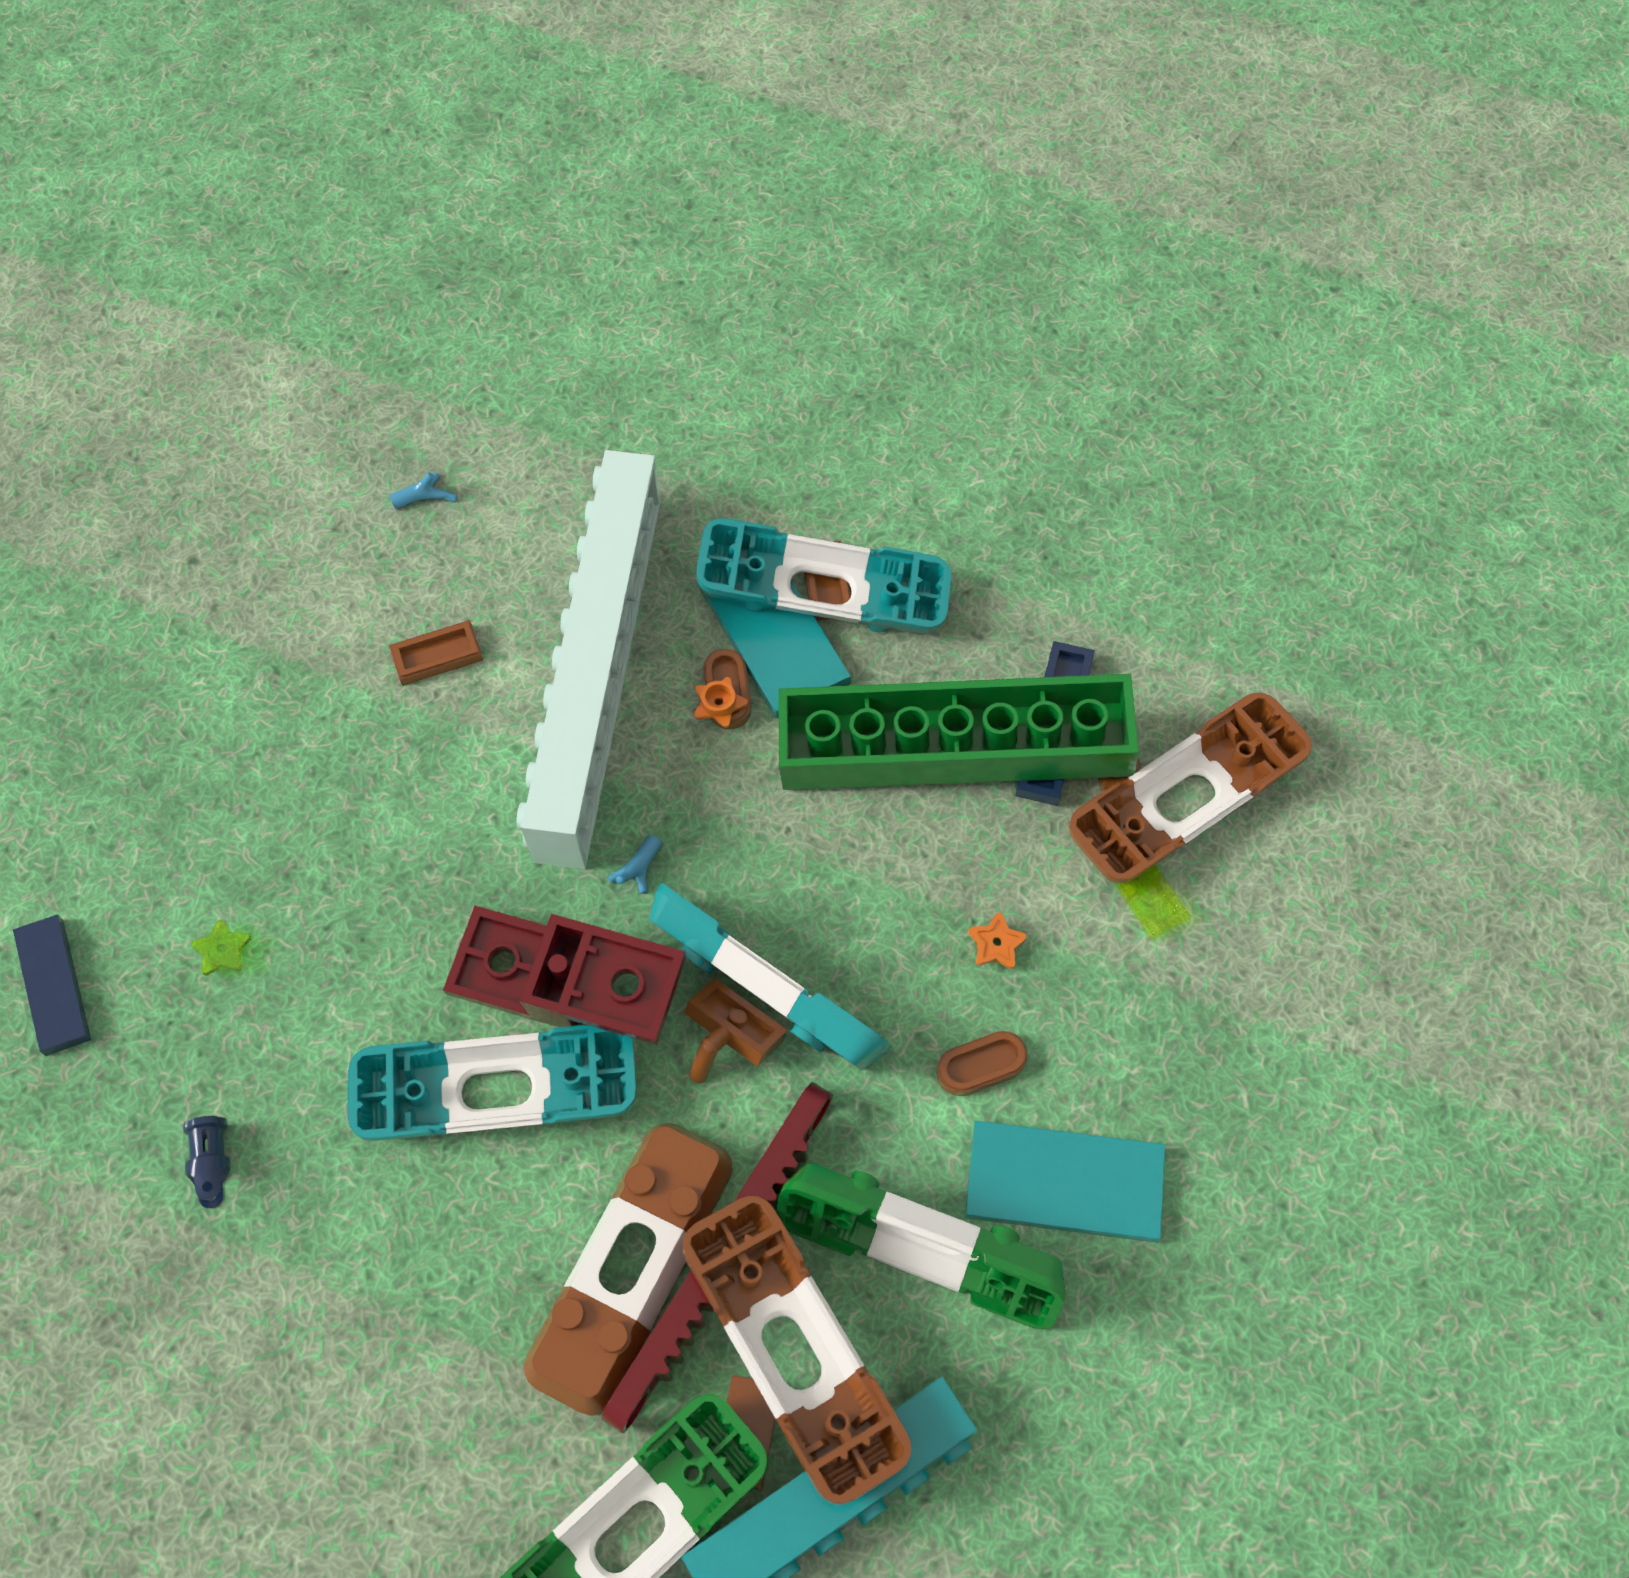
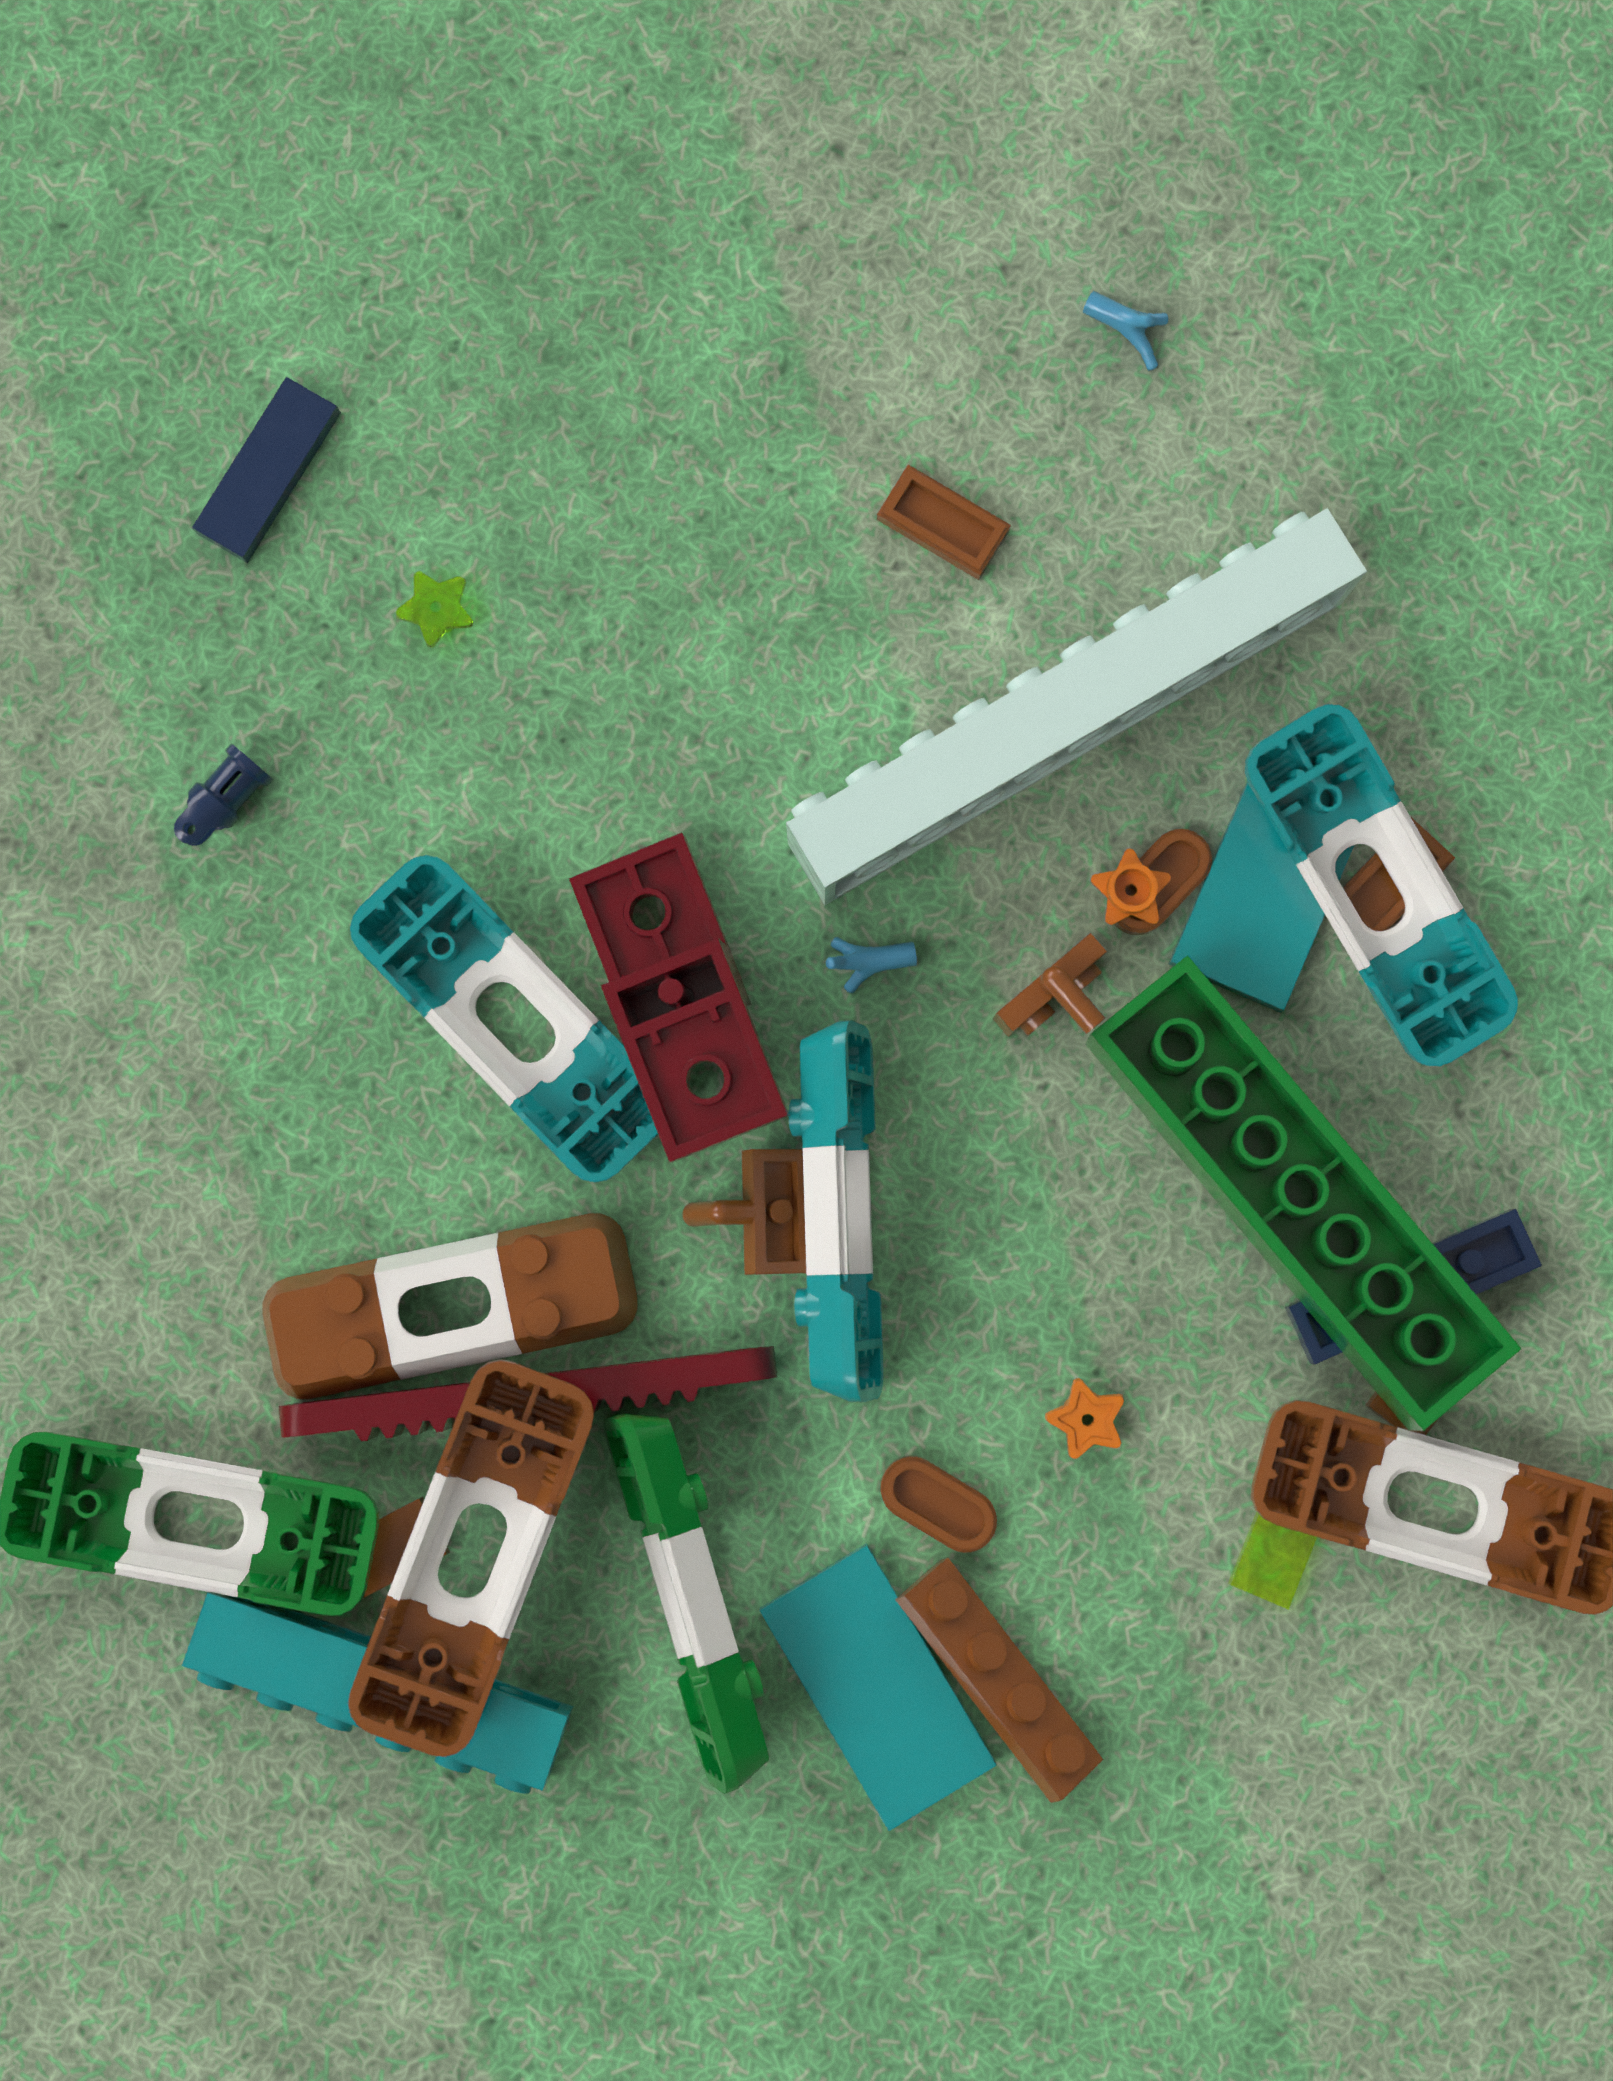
camera: 55 degrees right, 20 degrees up
(736, 763) = (1065, 984): none -> dark orange plate
(1114, 1104) = (999, 1680): none -> dark orange plate

